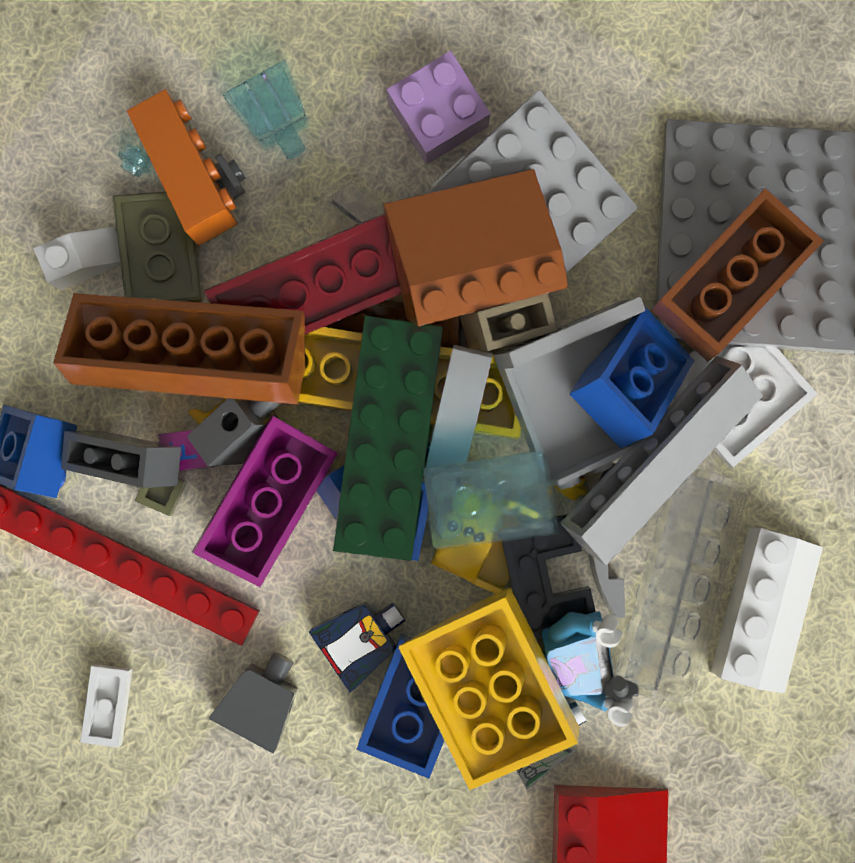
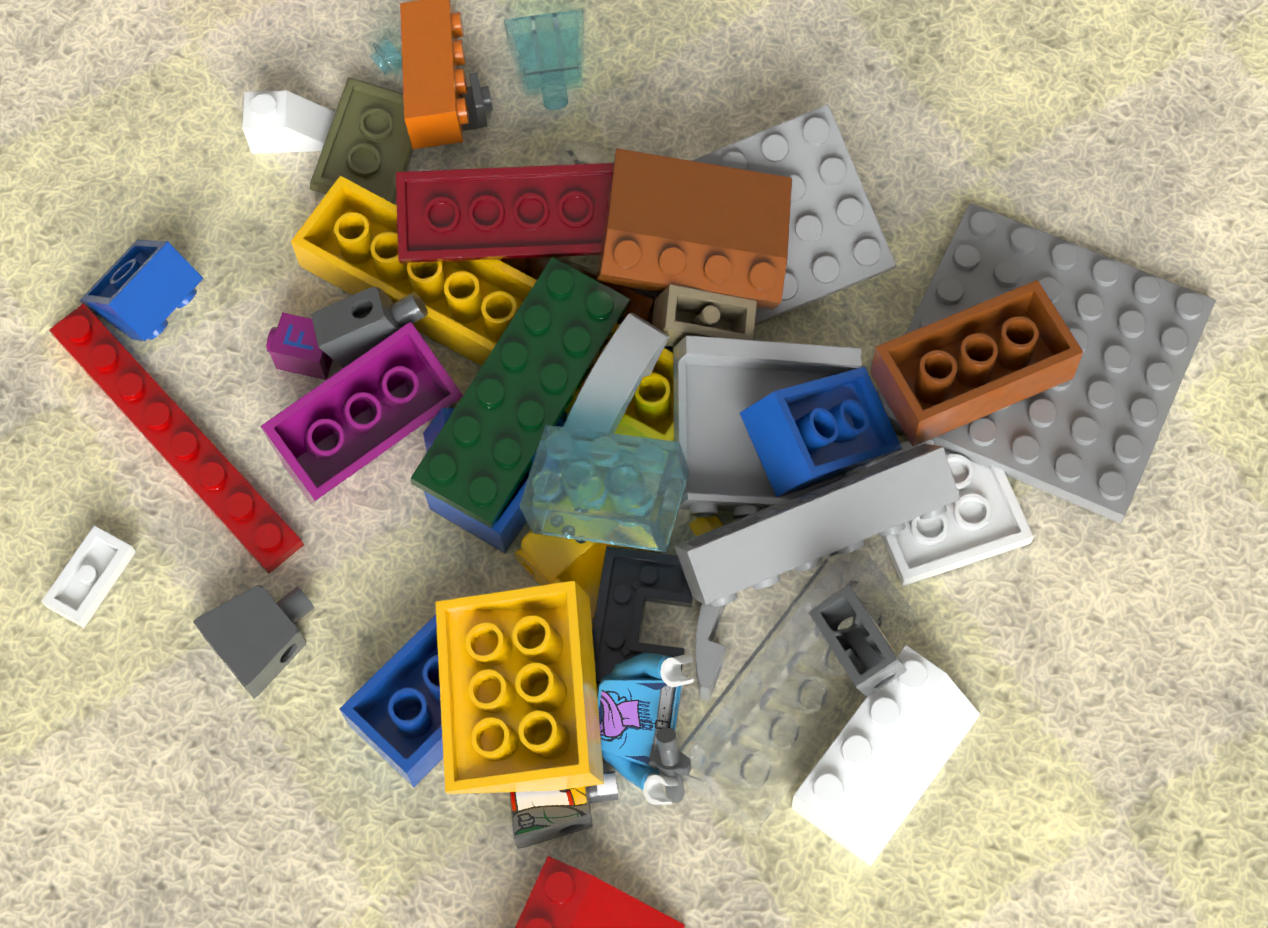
camera: 25 degrees right, 20 degrees down
(121, 458) = (233, 316): dark grey brick -> none
(162, 498) = (257, 378): olive plate -> none
(183, 348) = (349, 221): dark orange slope -> none
(356, 641) = (391, 607): torso -> none
(438, 107) = (721, 103): lavender brick -> none
(739, 557) = (862, 646): none -> dark grey torso

